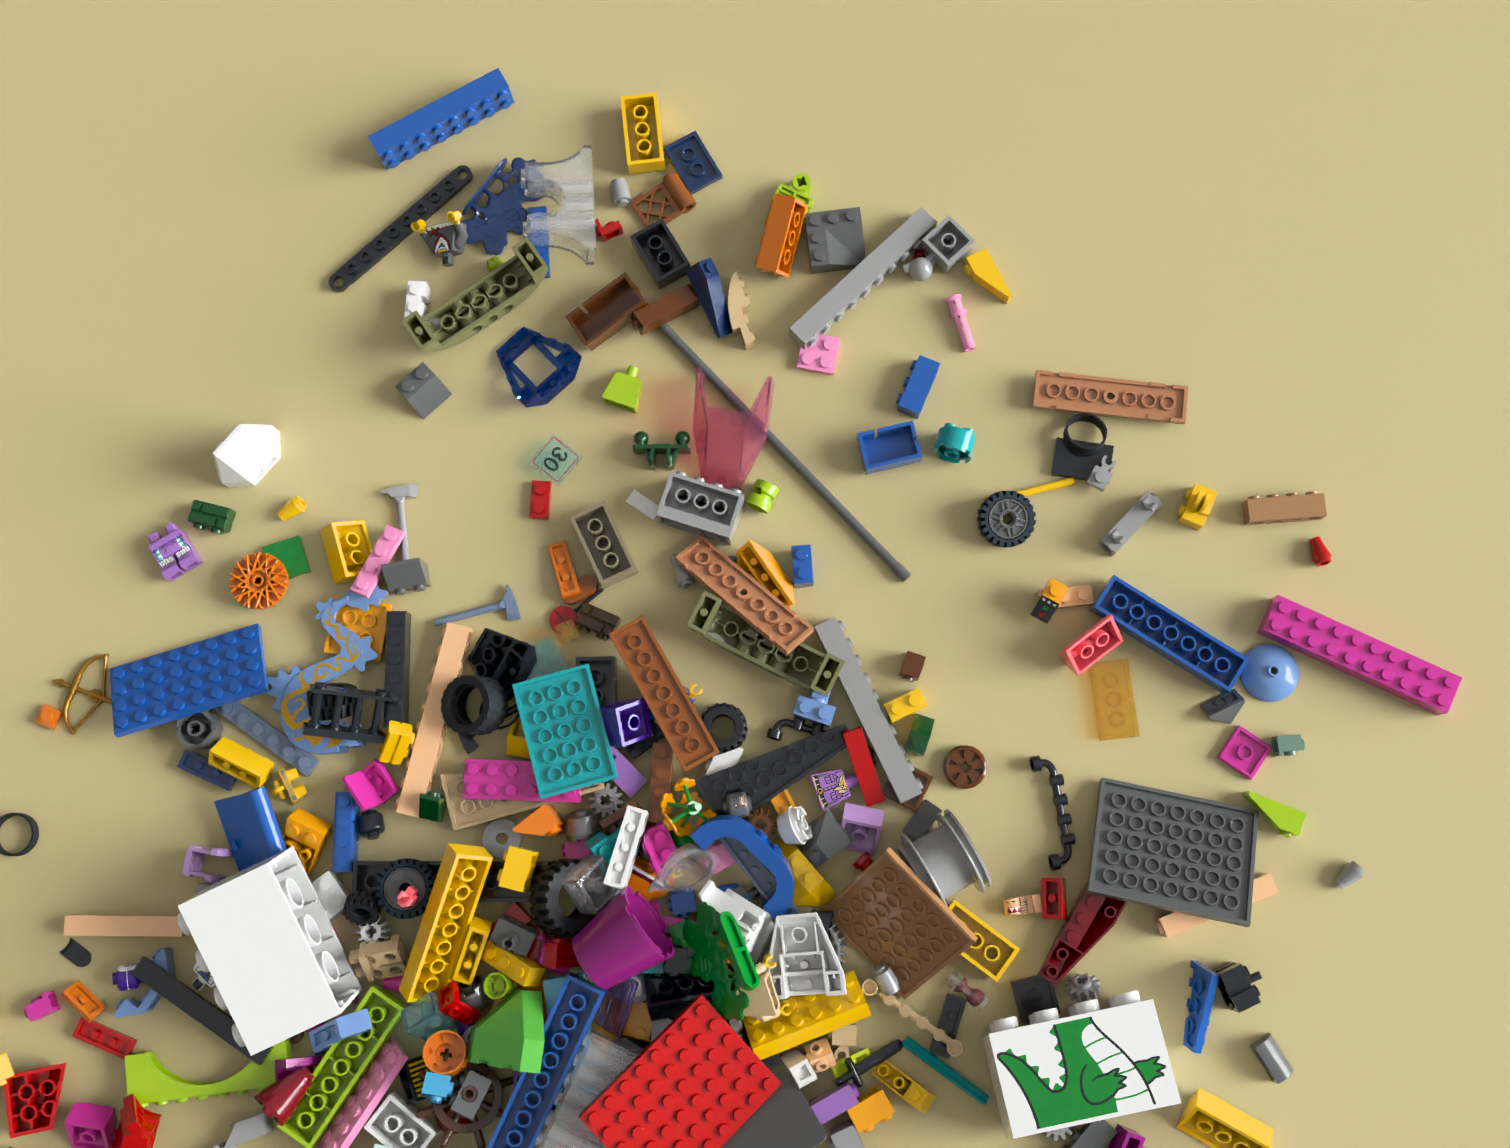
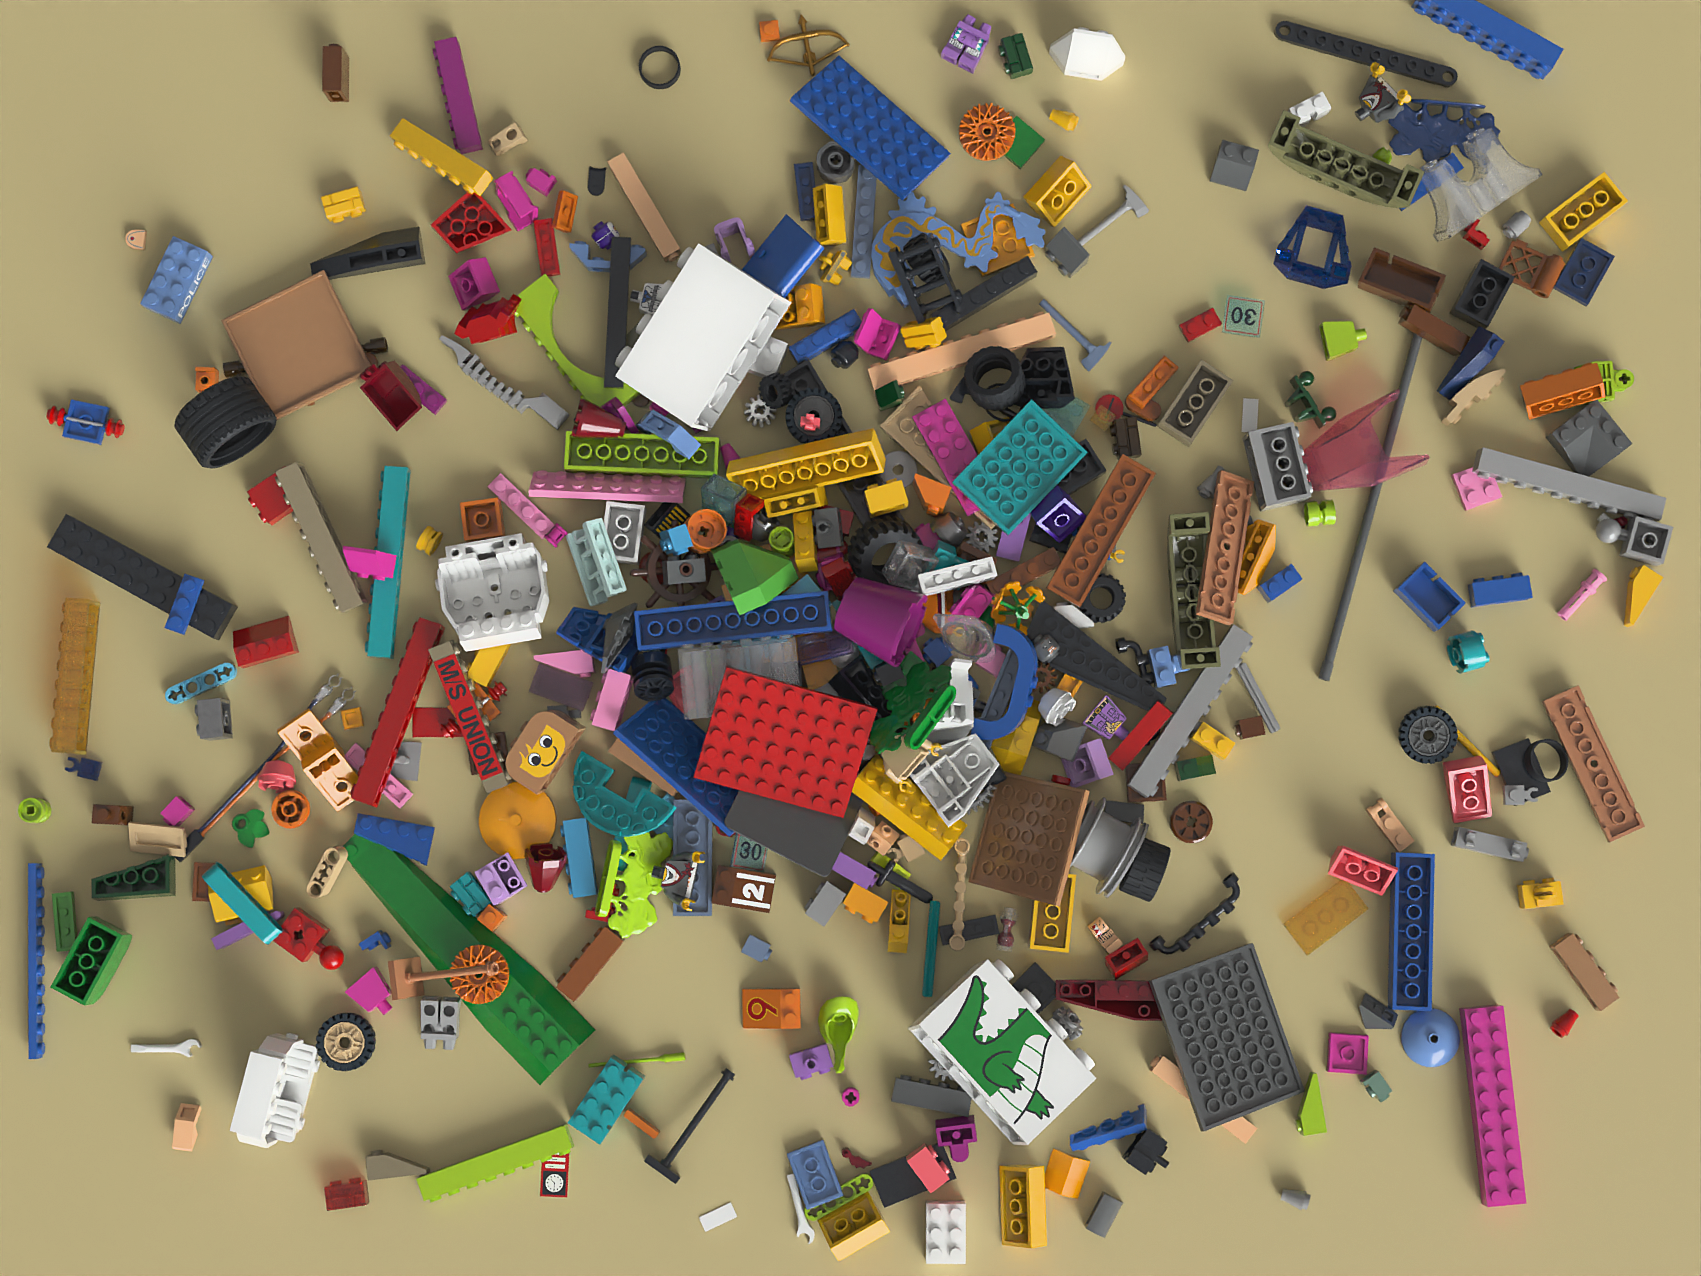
camera: 55 degrees right, 5 degrees up
(48, 1042) = (516, 201): none -> dark pink piece
(380, 959) = (743, 431): tan hips -> none
(381, 554) = (1072, 220): bright pink plate -> none
(886, 979) = (976, 856): light grey brick -> none
(890, 643) = (1258, 698): none -> light grey axle
(987, 834) = (1146, 870): none -> black tyre
(1049, 600) = (1377, 811): slope -> none
(1071, 513) = (1467, 788): none -> coral slope
(1216, 1071) = (1065, 1173): none -> light orange slope

